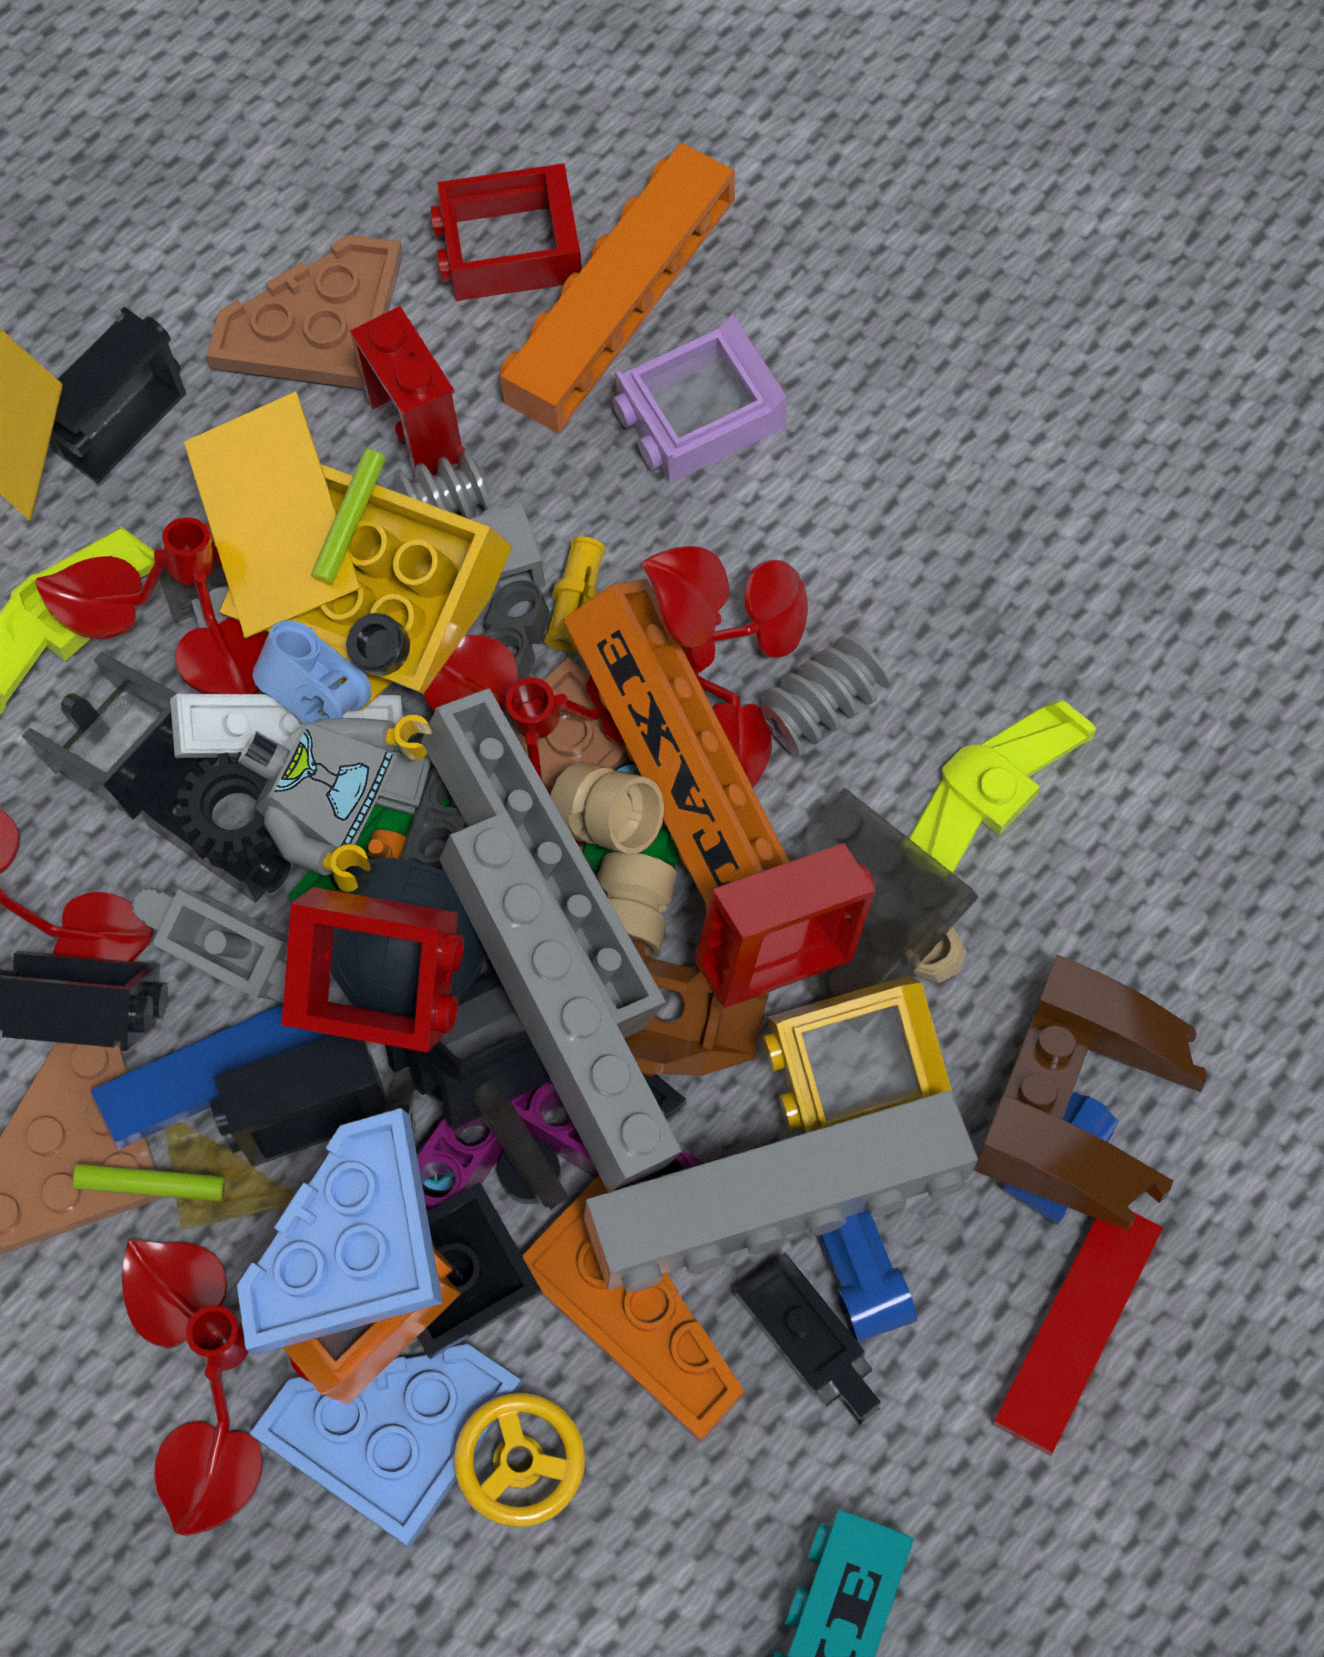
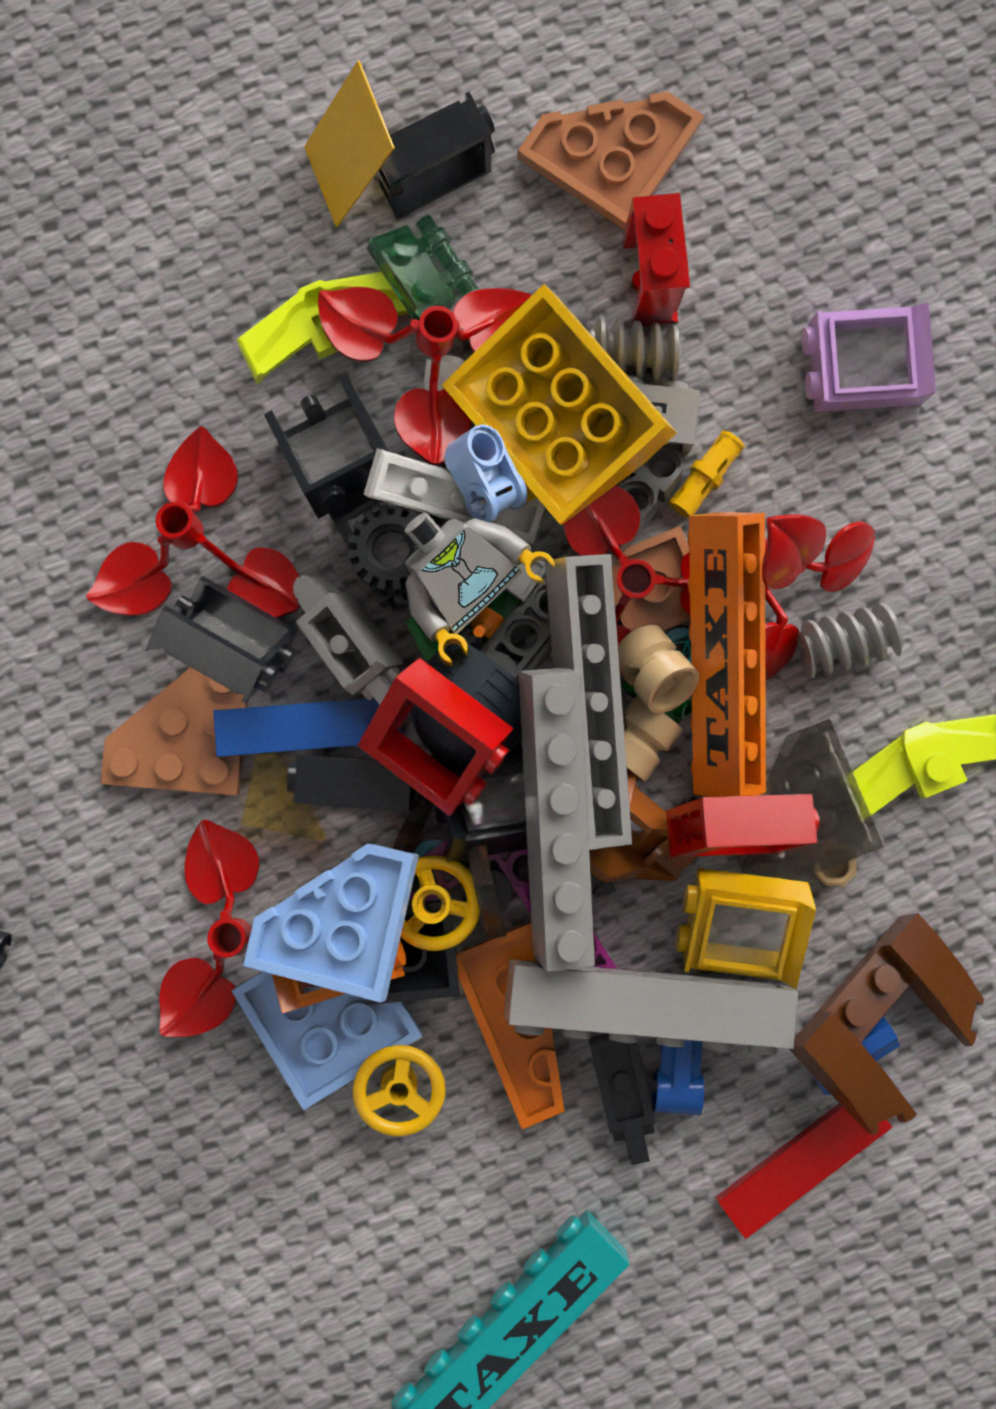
camera: 20 degrees right, 20 degrees up
(130, 514) = (411, 272): none -> clear green plate
(148, 1182) = (229, 790): lime piece -> none
(268, 513) = (510, 327): yellow sticker -> none
(348, 516) = (566, 362): lime piece -> none
(378, 644) = (545, 475): black tile -> none
(455, 1164) = (469, 910): none -> yellow piece
(504, 195) = (801, 109): red window -> none
(617, 287) = (854, 229): orange brick -> none

